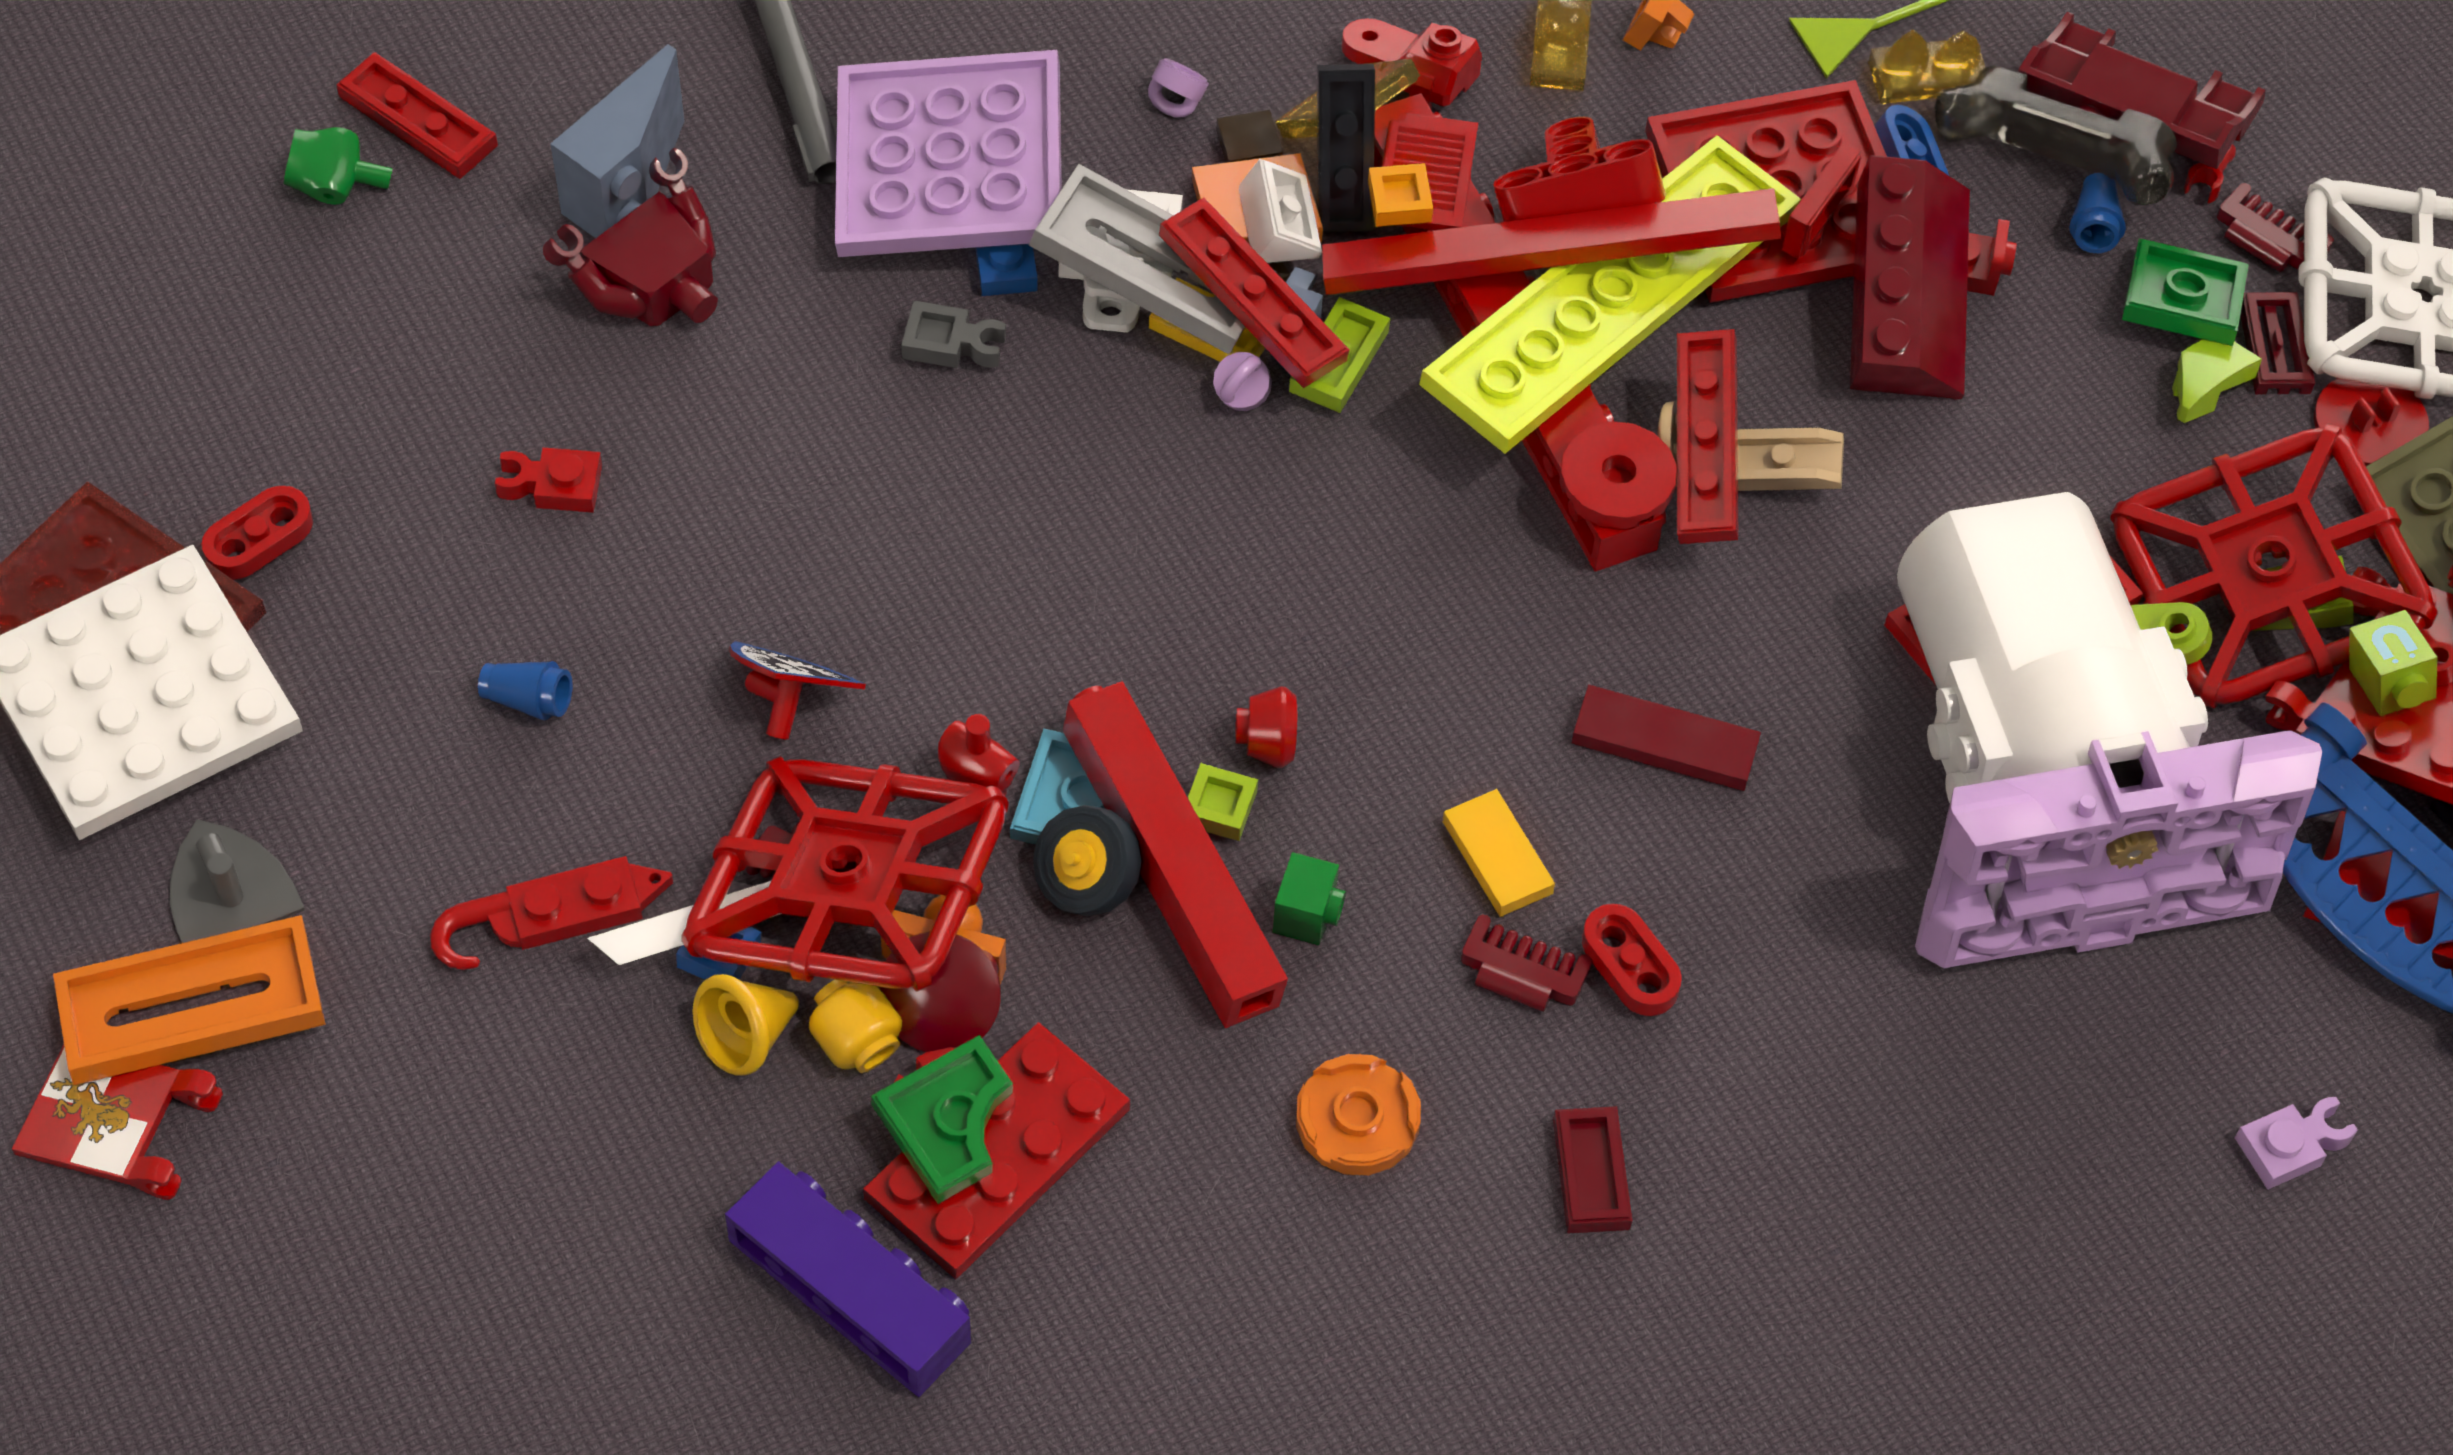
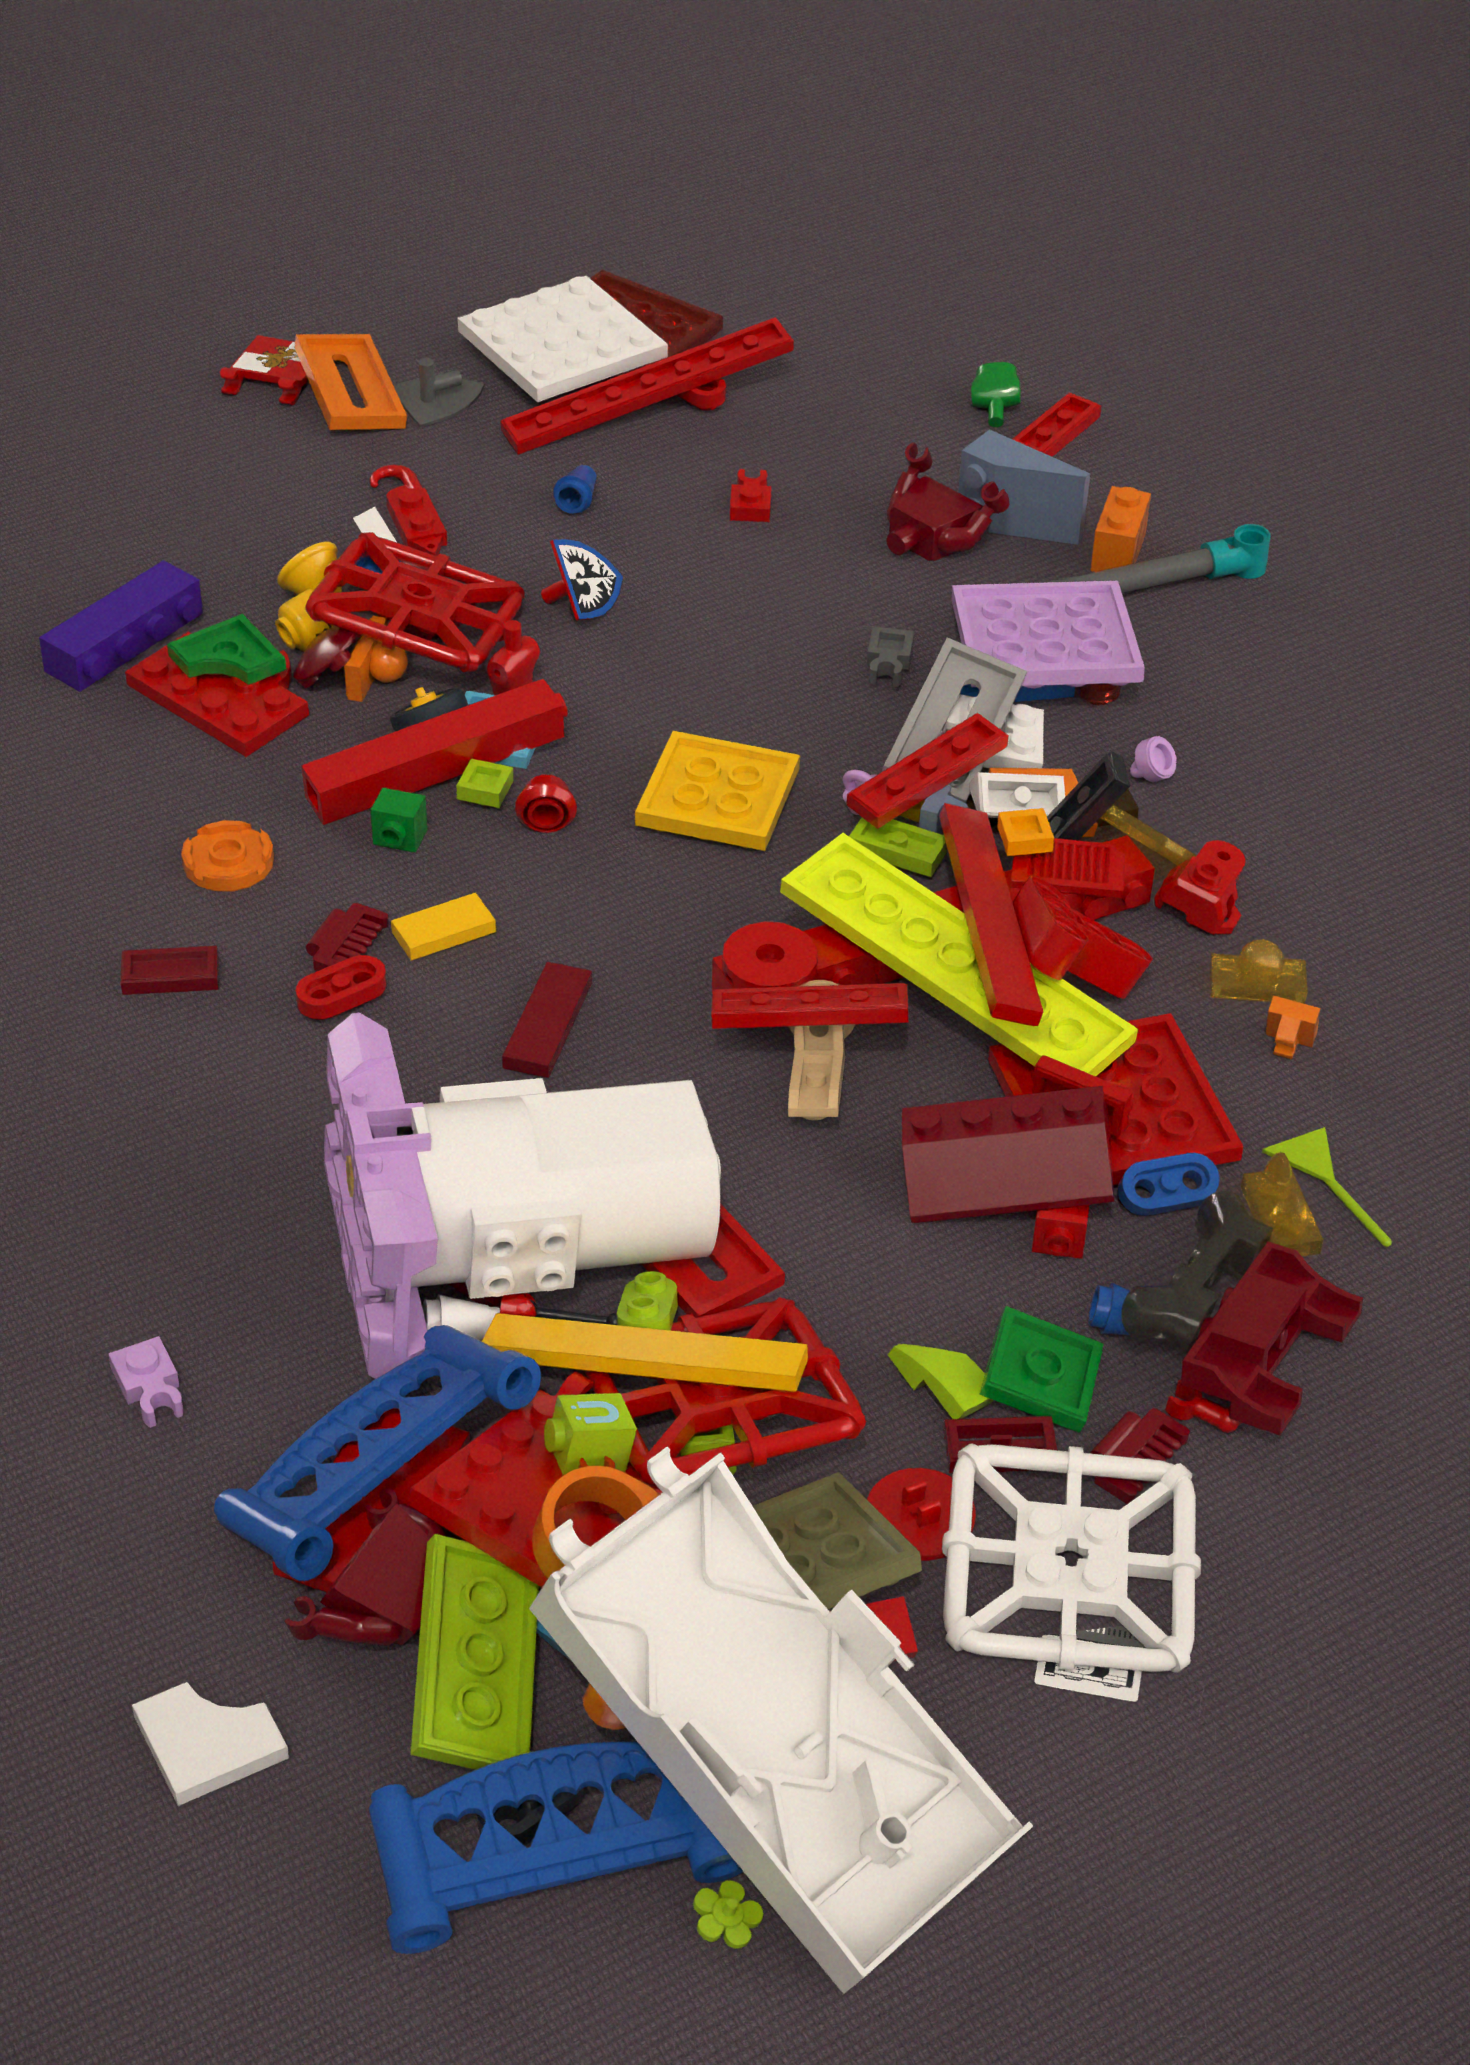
camera: 90 degrees right, 15 degrees down
(285, 585) = (646, 385): none -> red tile
(715, 57) = (1120, 528): none -> orange brick
(1233, 539) = (717, 790): none -> yellow plate
(2252, 602) = (651, 1352): none -> yellow tile

